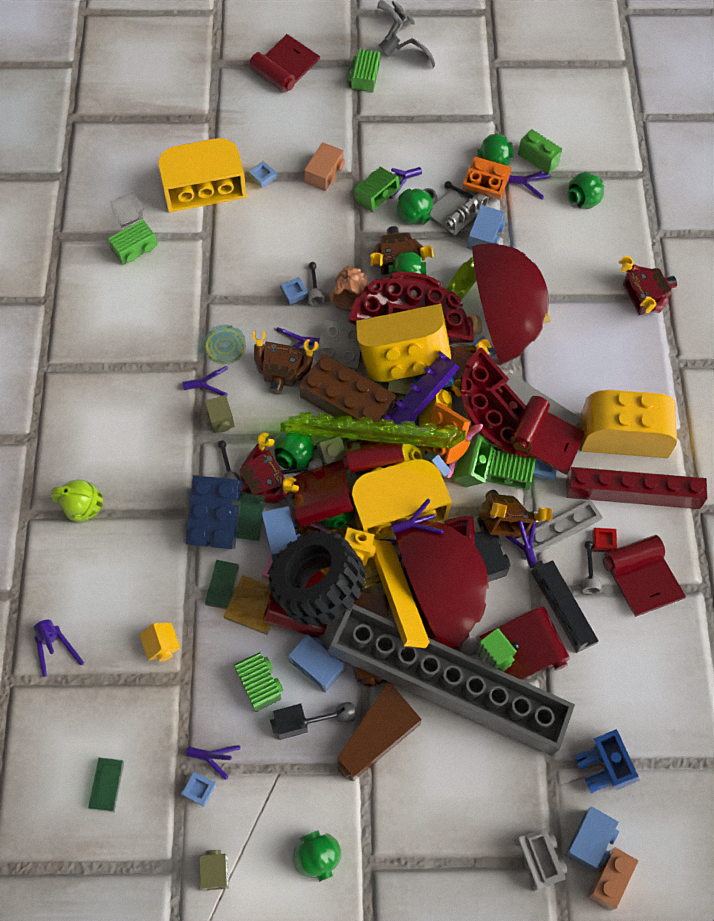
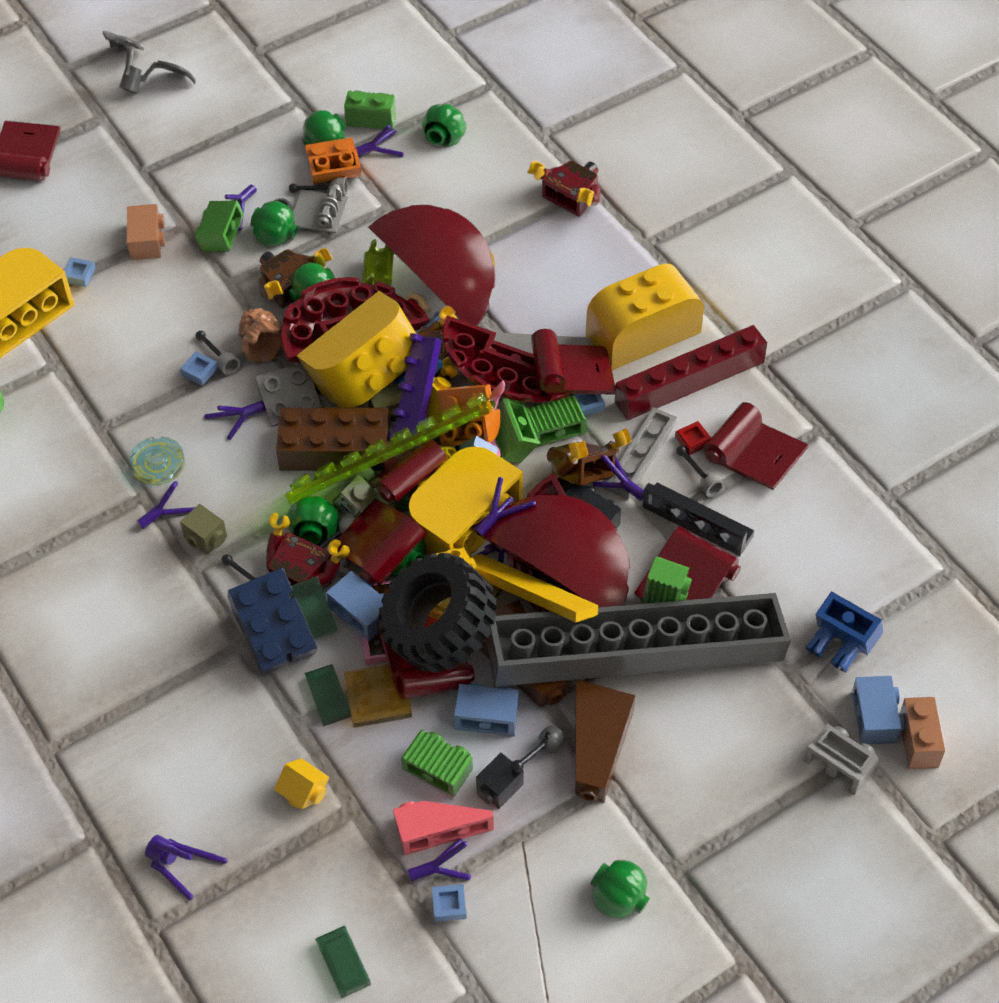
camera: 30 degrees left, 10 degrees down
(78, 500) = (104, 697): lime helmet -> none
(213, 871) = (524, 969): olive brick -> none
(222, 724) = (434, 824): none -> coral slope
(282, 363) = (238, 443): reddish brown torso -> none
(365, 70) = (122, 117): bright green brick -> none
(486, 227) = (365, 207): medium blue brick -> none

